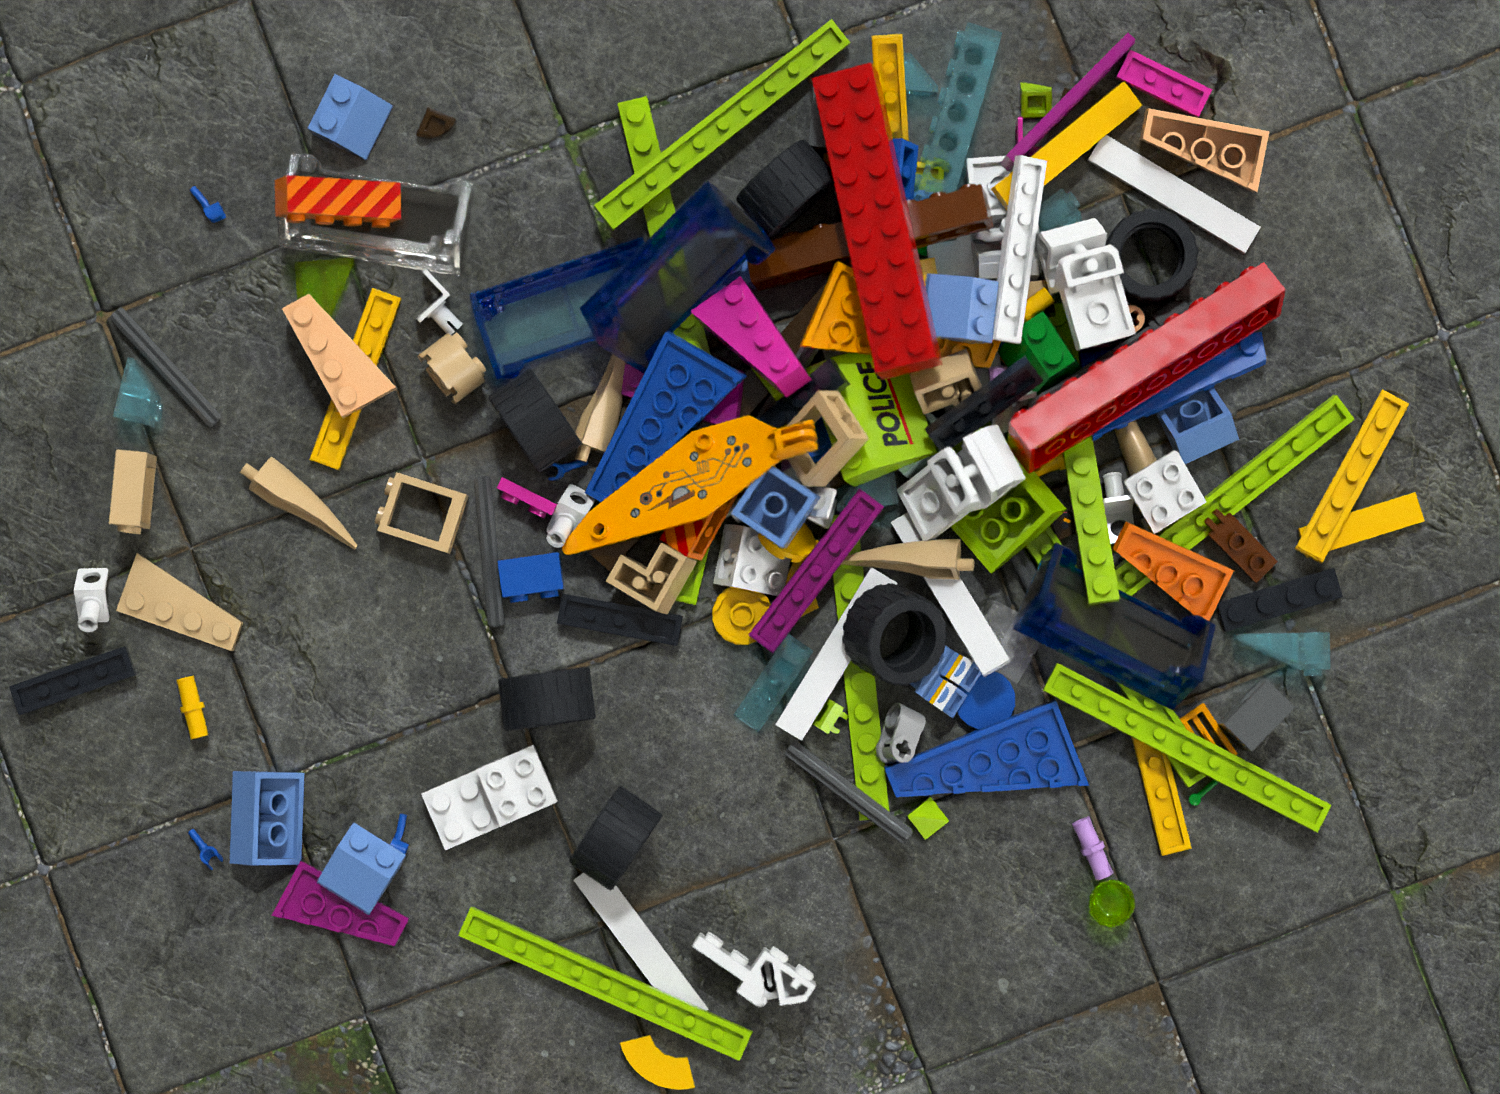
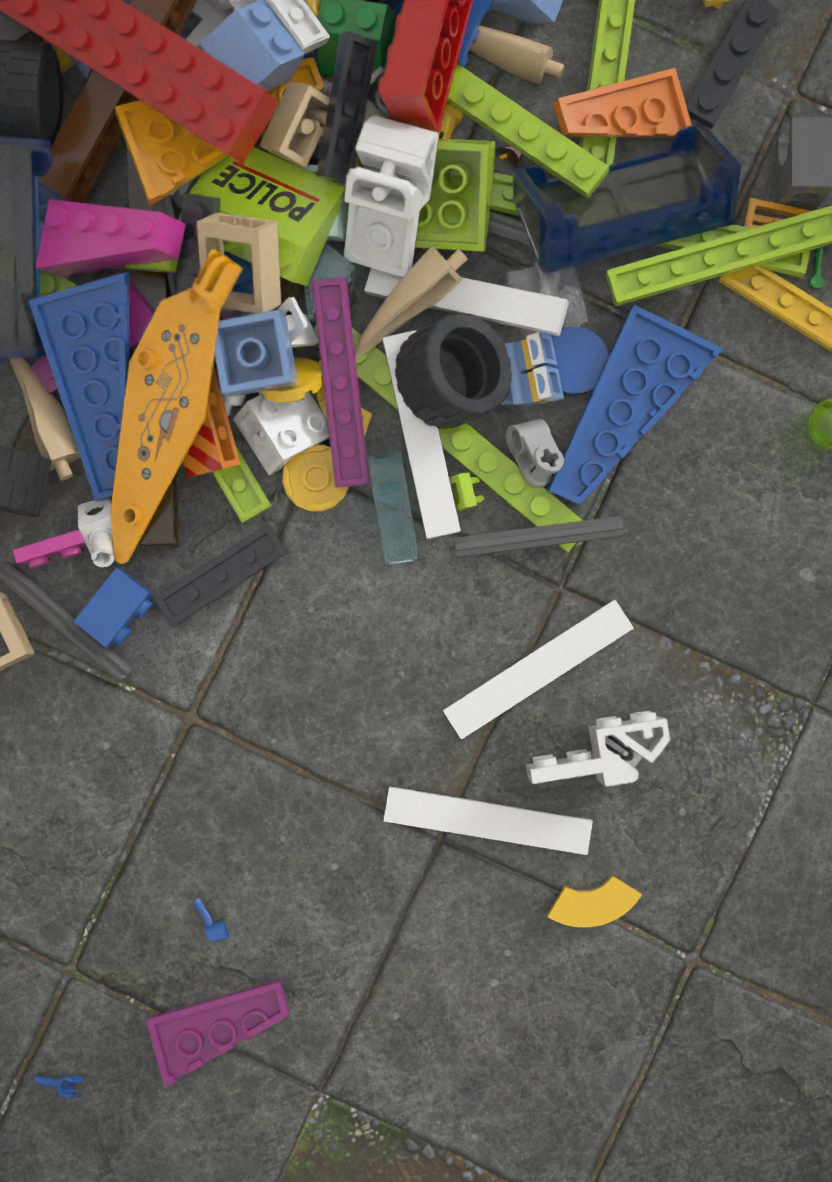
camera: 40 degrees left, 0 degrees up
(266, 818) = (85, 1011): medium blue slope -> none
(361, 868) = (200, 979): medium blue slope -> none
(489, 797) = (250, 819): white piece -> none
(546, 698) = (218, 694): black tyre -> none
(566, 467) = (60, 498): blue hand -> none
(605, 983) = (490, 880): lime plate -> none
(615, 838) = (383, 755): black tyre -> none
(656, 584) = (221, 513): tan brick -> none
(767, 877) = (538, 669): none -> white tile
(927, 818) = (620, 498): lime slope -> none
(1092, 848) = (774, 396): lavender pin -> none
(1116, 504) = (531, 99): white bracket -> none
(1164, 492) = (560, 51): white bracket -> none
(1240, 545) = (659, 44): reddish brown hinge -> none
(1295, 650) = (782, 88): clear light blue slope -> none

